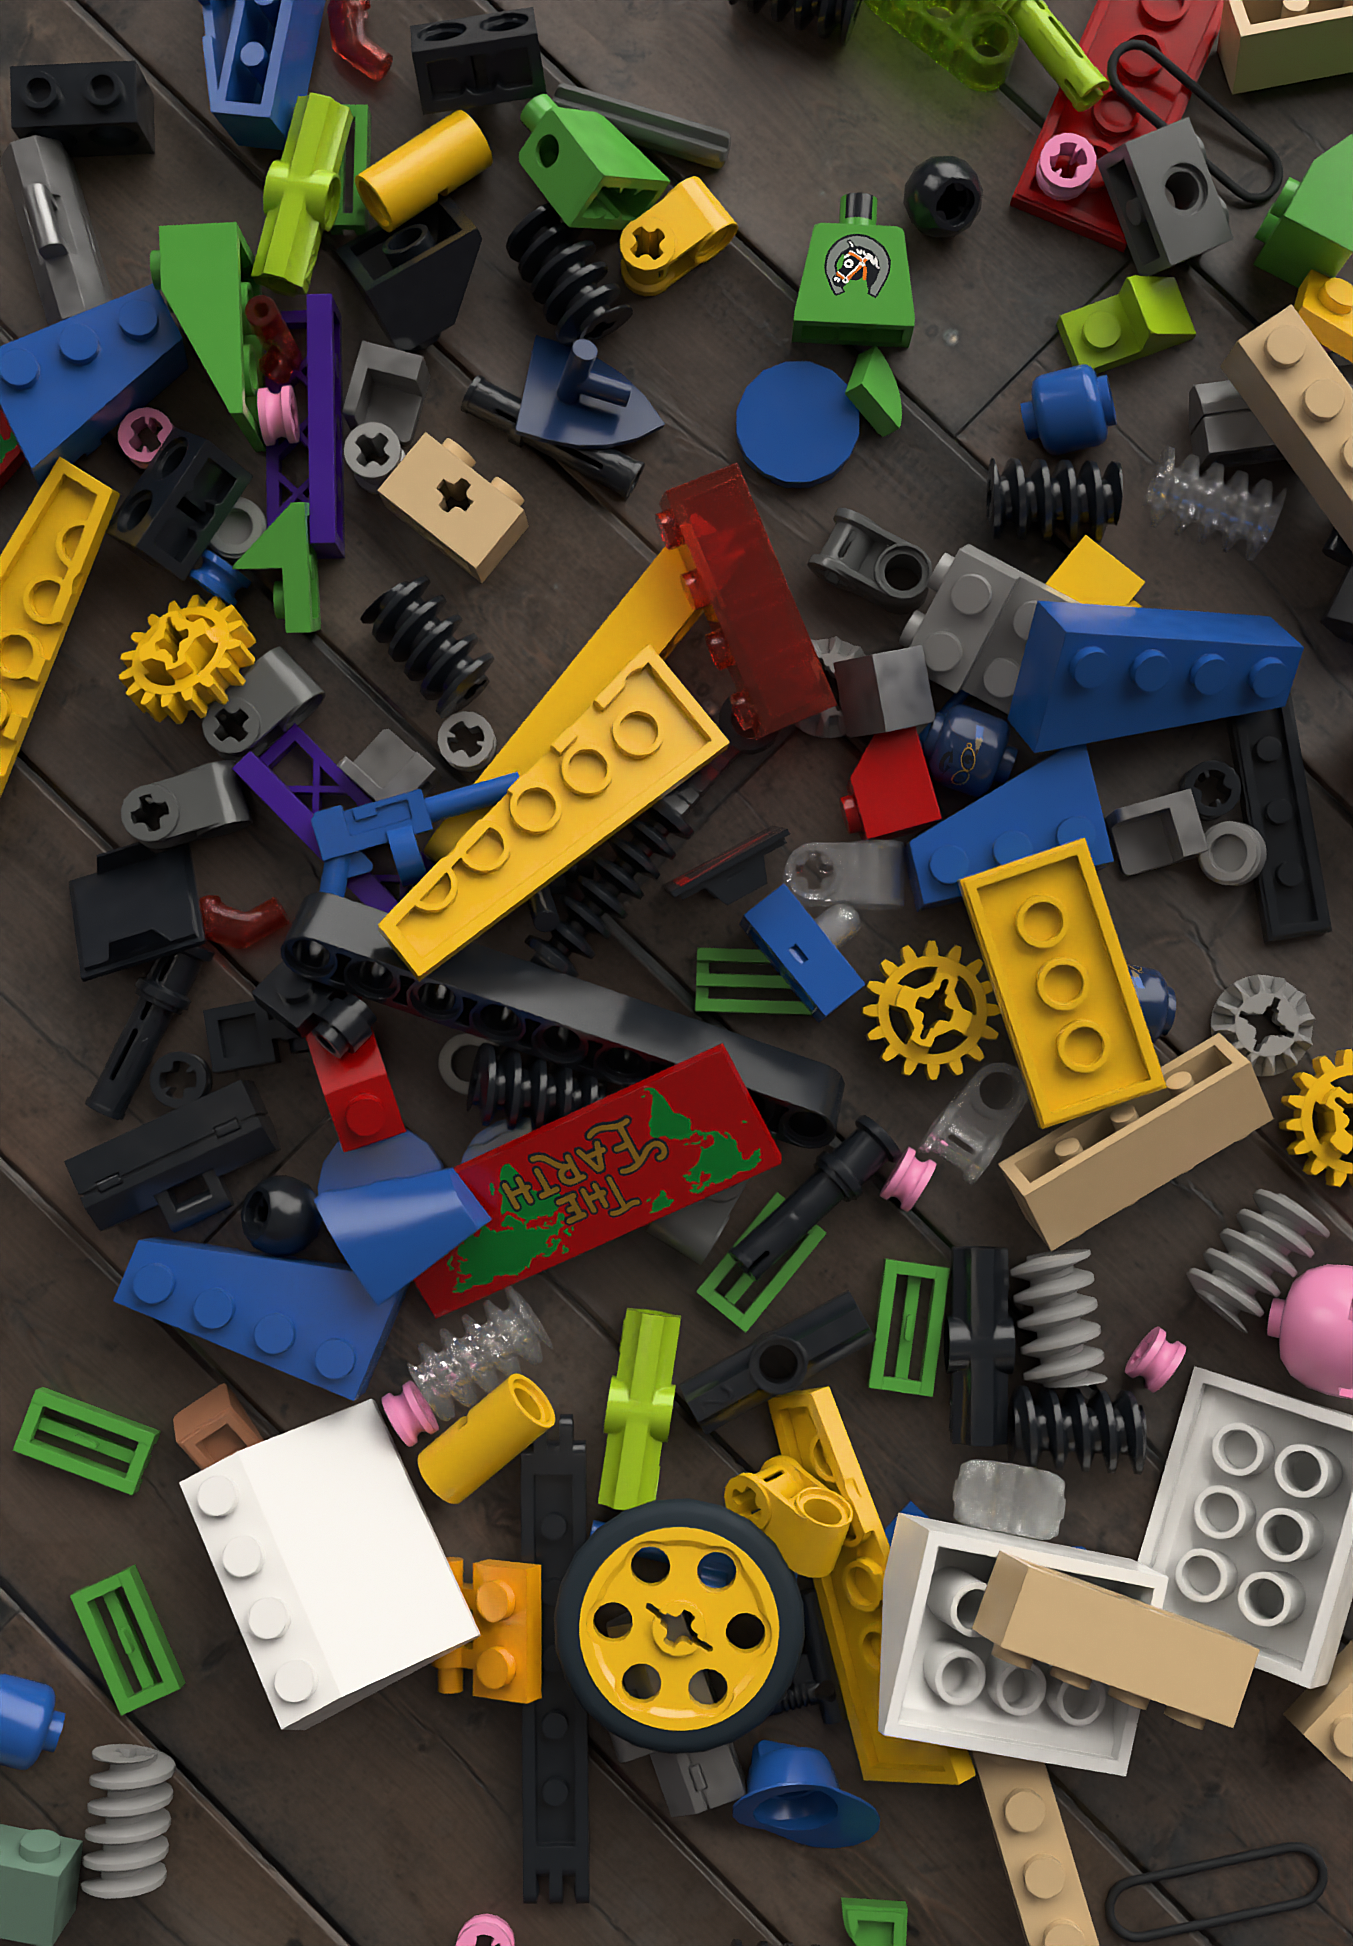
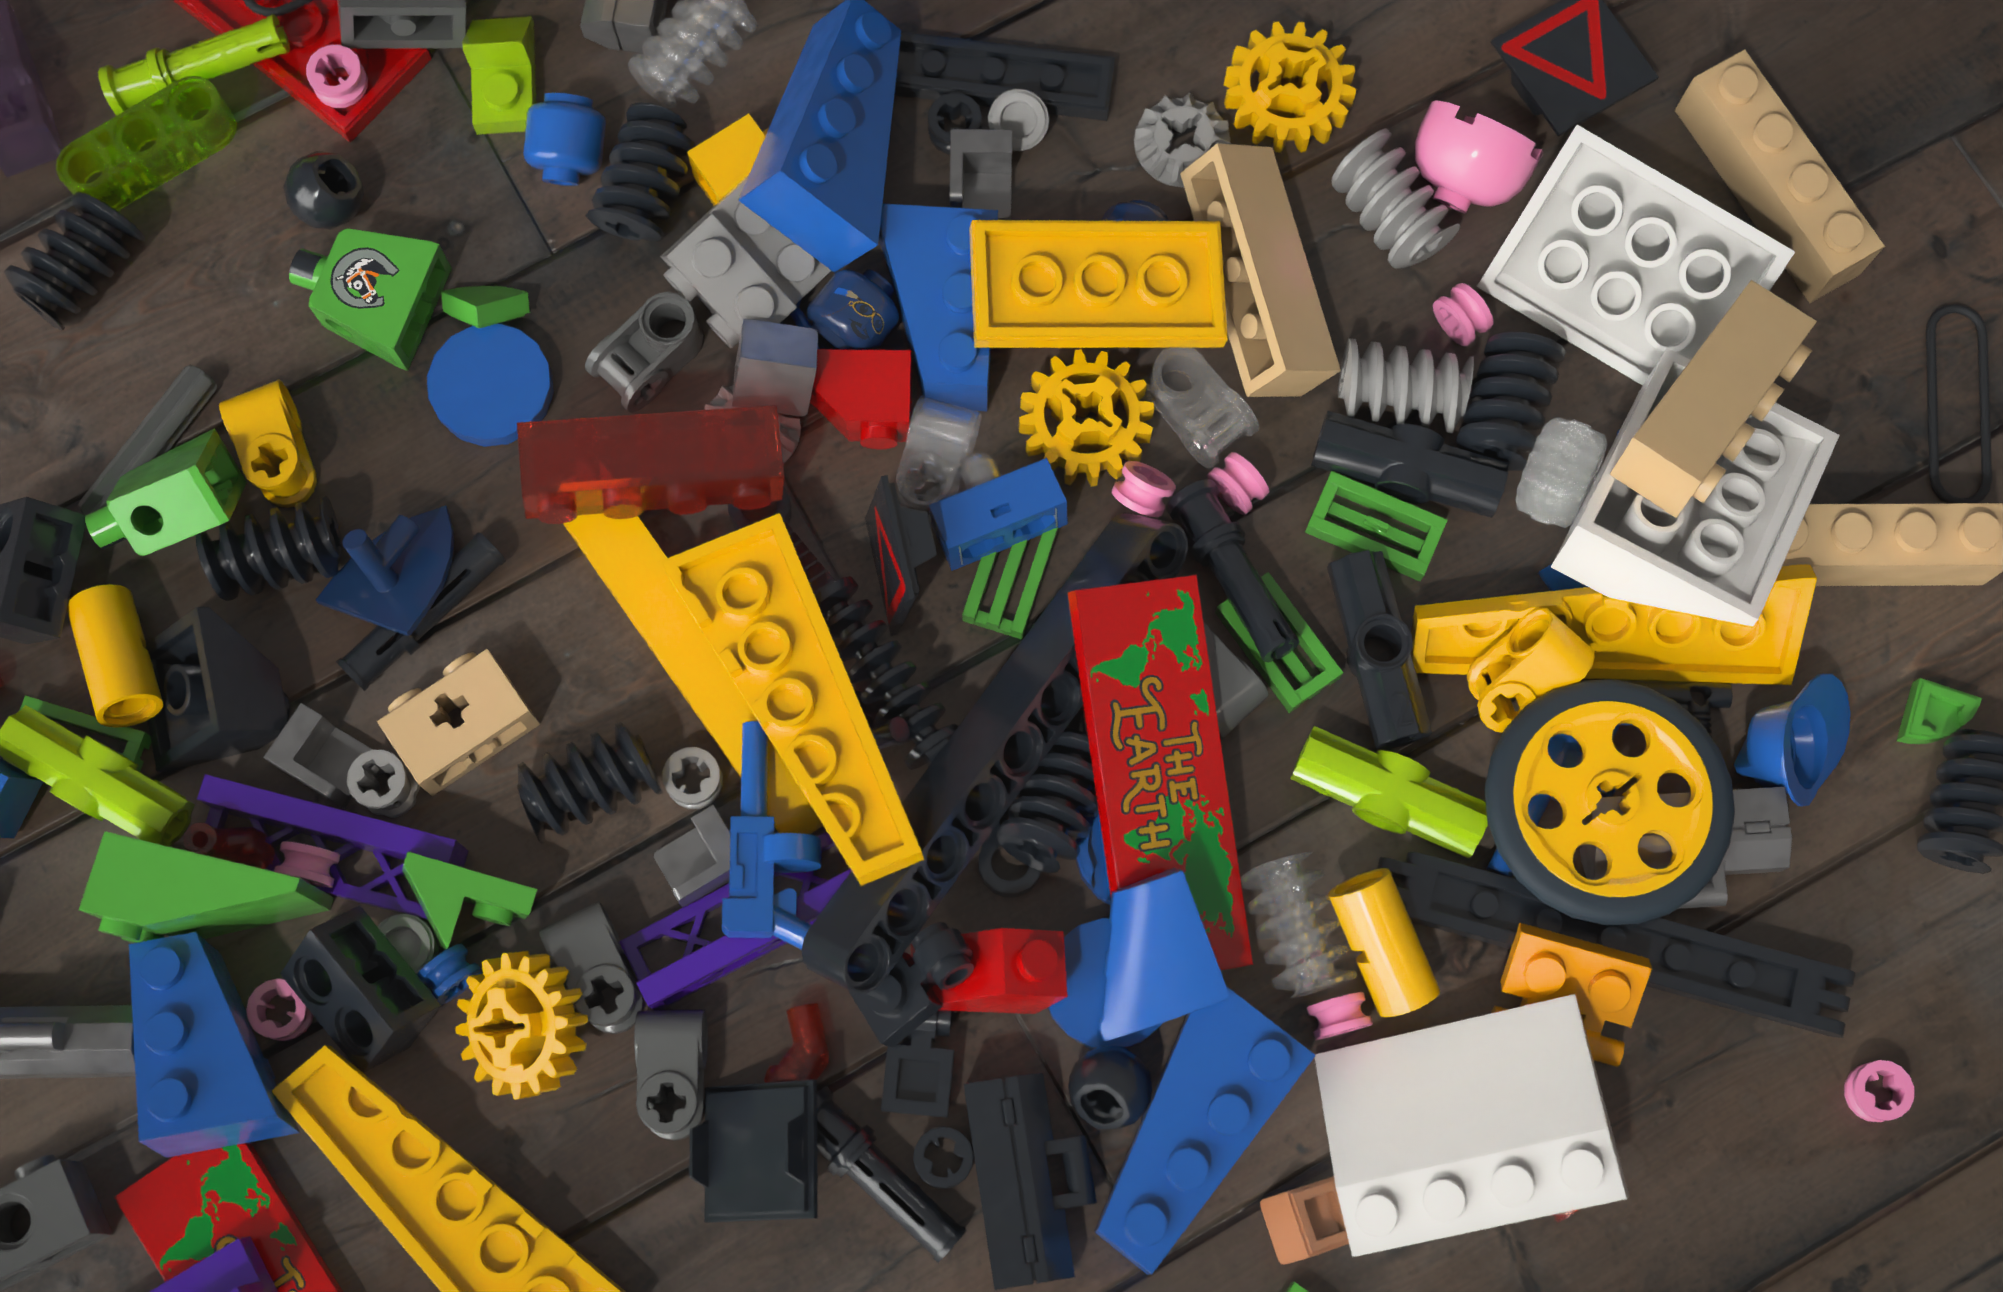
camera: 85 degrees left, 10 degrees down
(870, 1087) = (1143, 489): none -> bright pink bush

